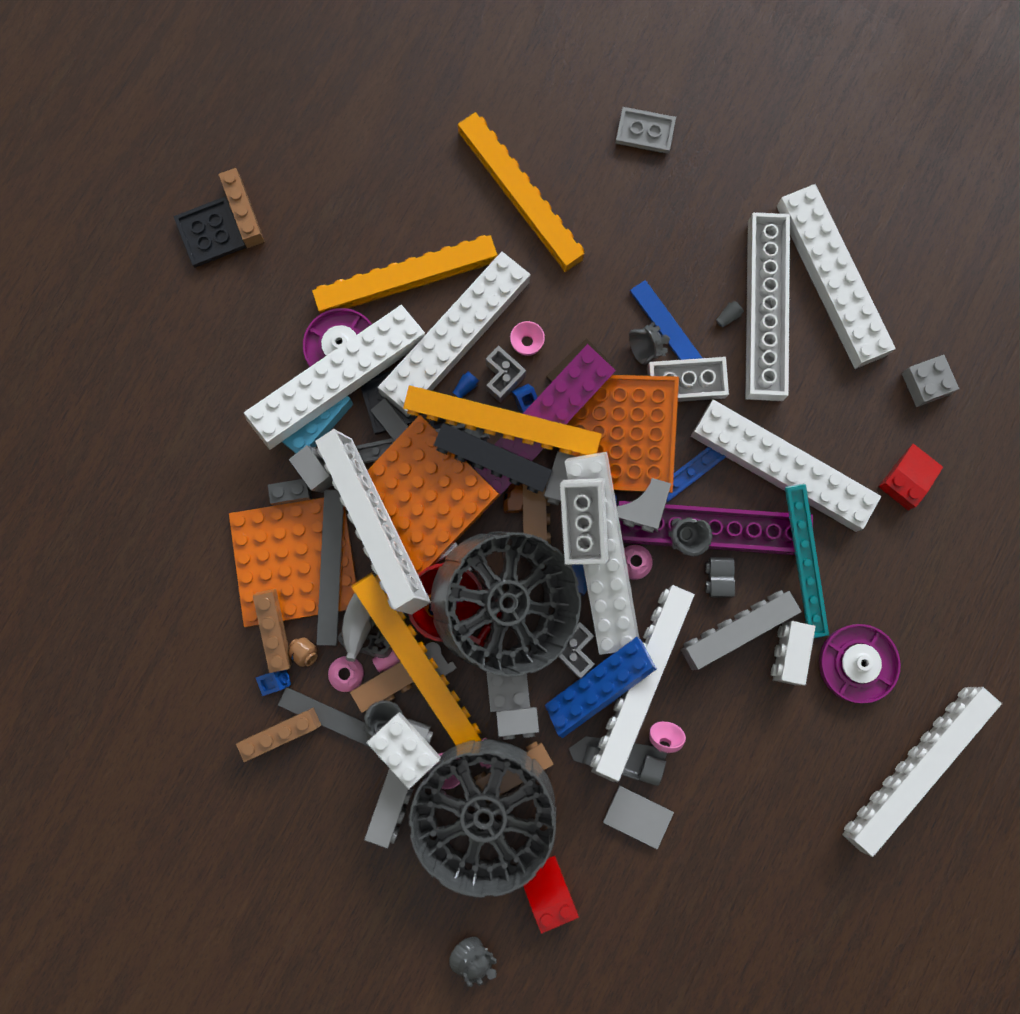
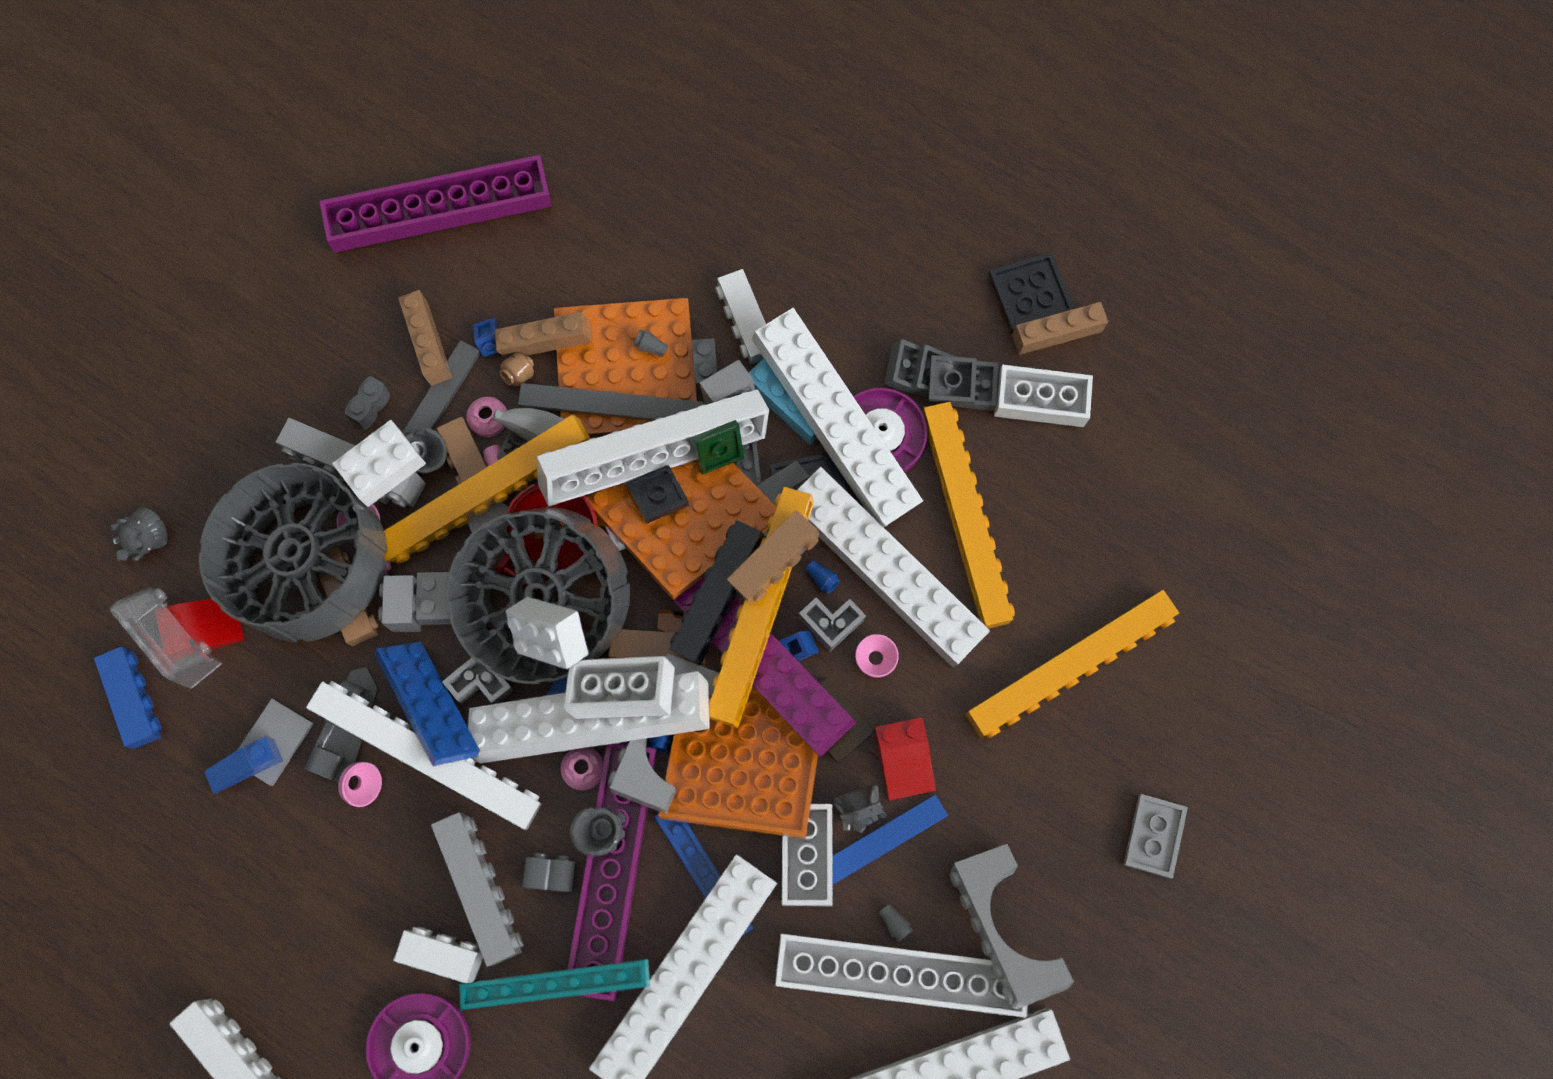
camera: 90 degrees right, 5 degrees down
(150, 742) = (435, 203): none -> magenta brick
(241, 464) = (742, 310): none -> white brick
(274, 539) = (650, 344): none -> dark grey cone
(284, 315) = (910, 367): none -> dark grey slope
(293, 281) = (963, 382): none -> dark grey slope
(302, 218) = (1043, 395): none -> white brick
(346, 781) = (364, 407): none -> dark grey brick
(368, 468) = (718, 447): none -> dark green tile
(411, 516) = (657, 494): none -> black plate
(466, 409) = (774, 557): none -> medium nougat brick
(542, 585) = (547, 632): none -> white brick
(563, 920) = (164, 638): none -> clear windscreen
(604, 314) = (905, 758): none -> red slope
(613, 945) = (128, 697): none -> blue brick
(661, 836) = (243, 764): none -> blue slope
(765, 215) = (1021, 977): none -> light grey arch

